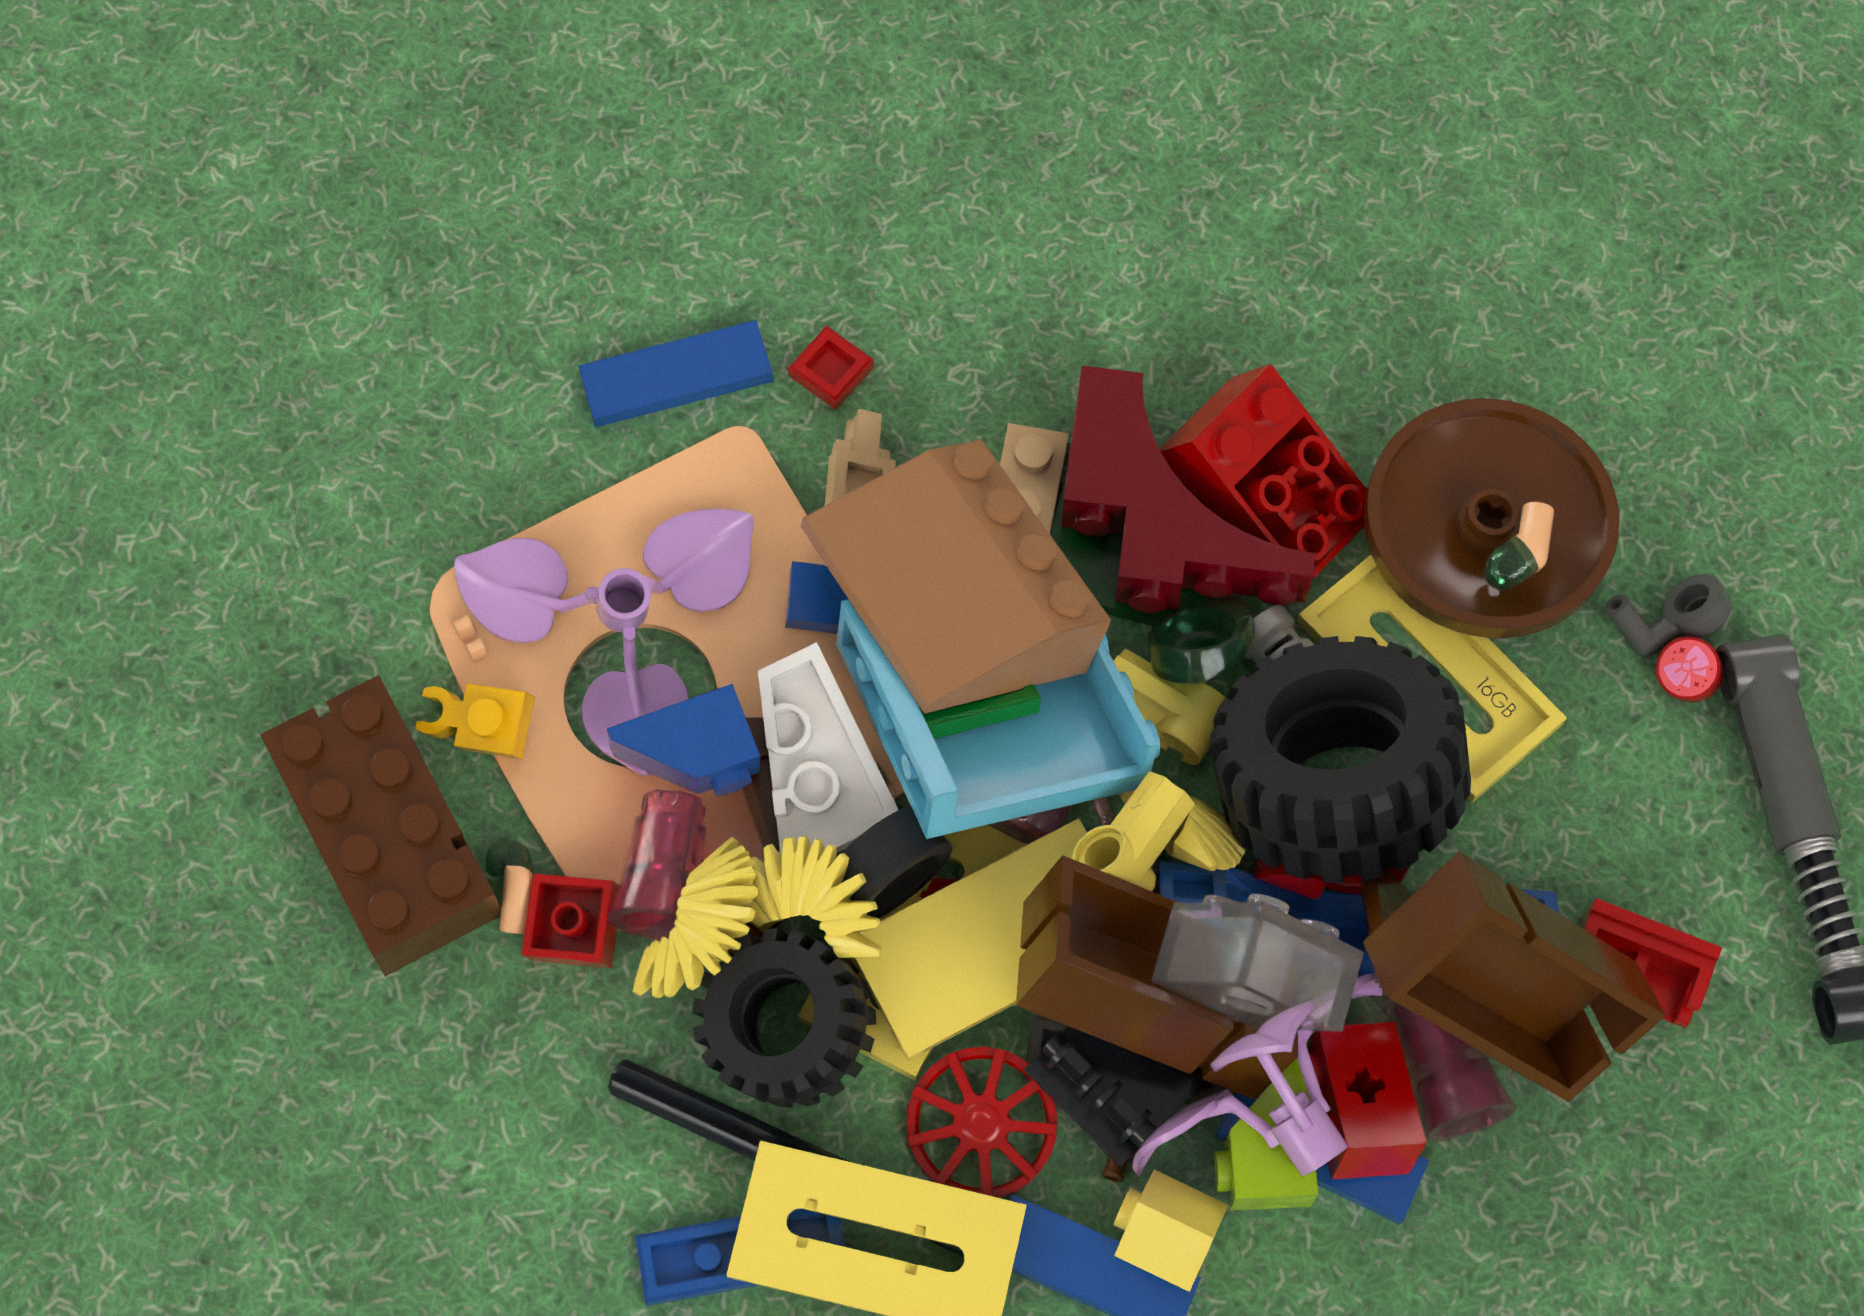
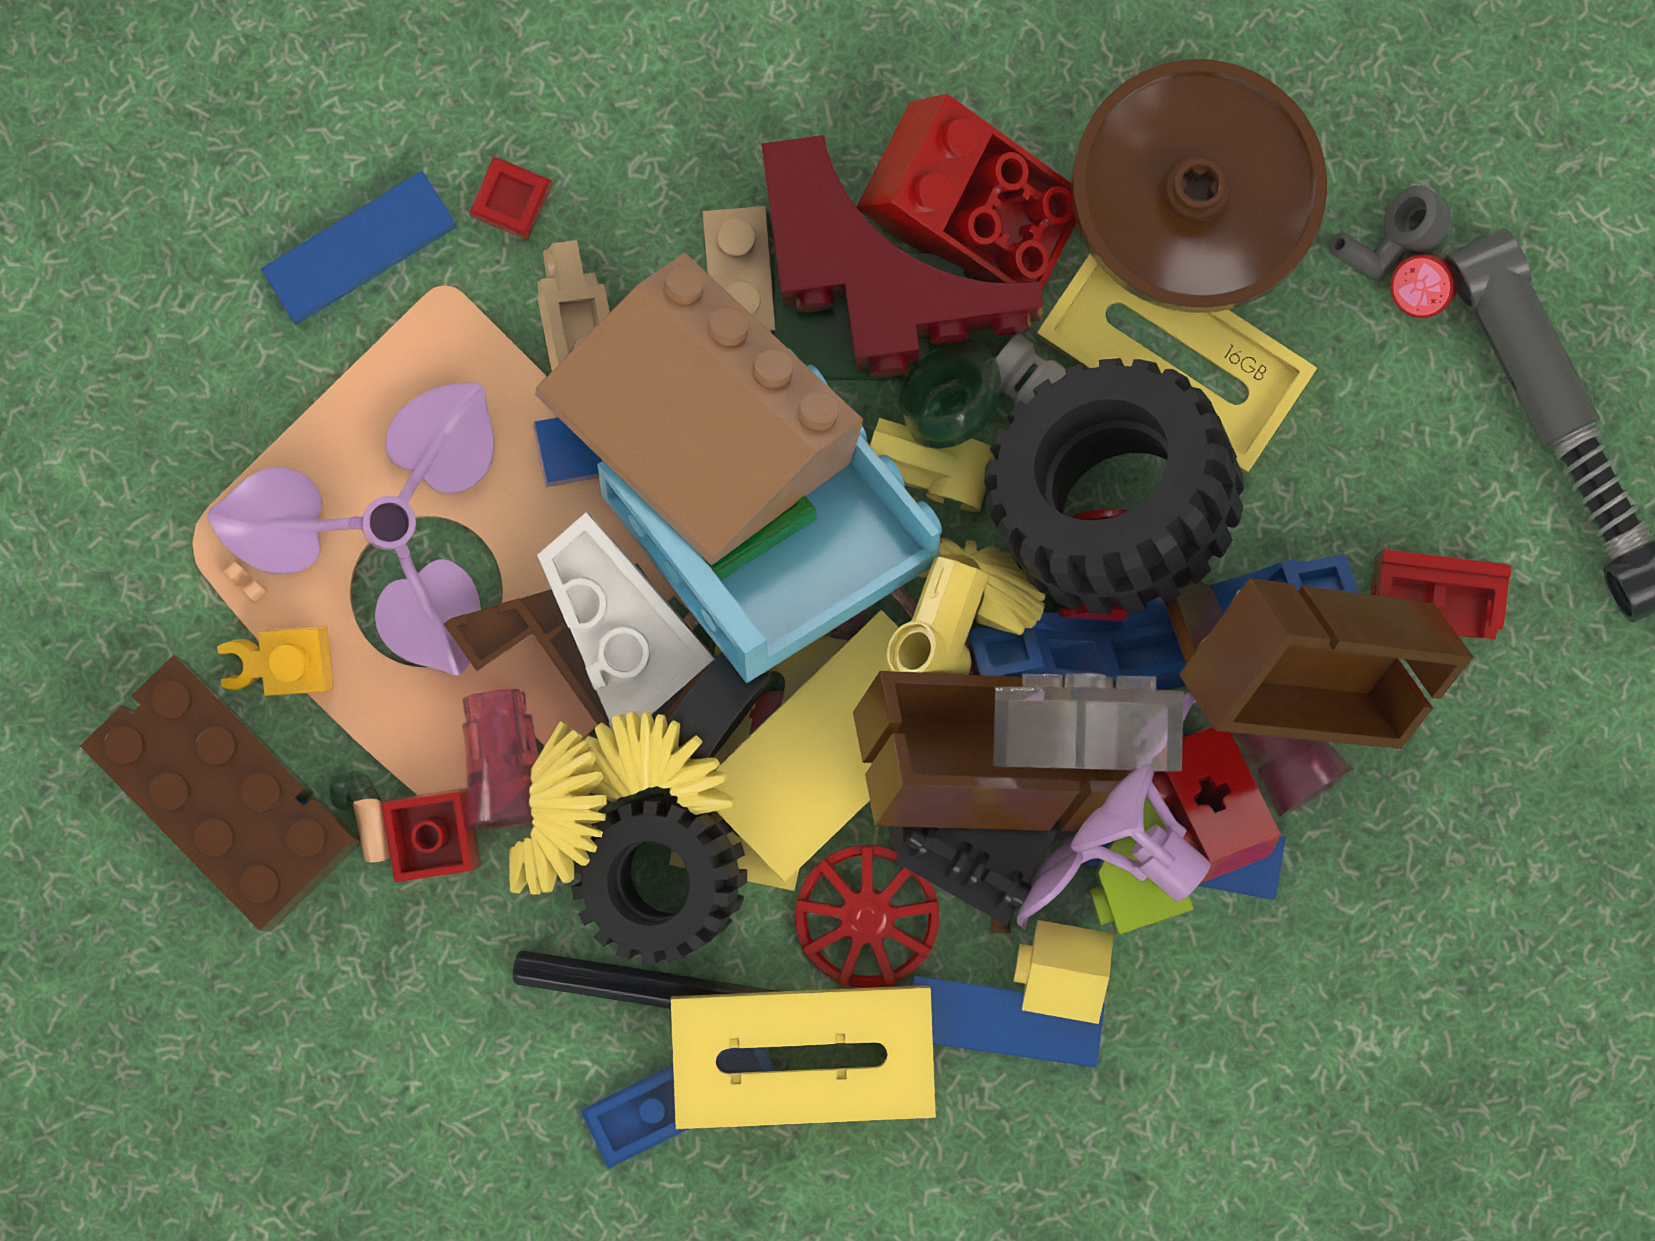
camera: 15 degrees left, 15 degrees up
(692, 743) = (499, 643): blue slope -> none
(1523, 553) = (1240, 220): arm -> none

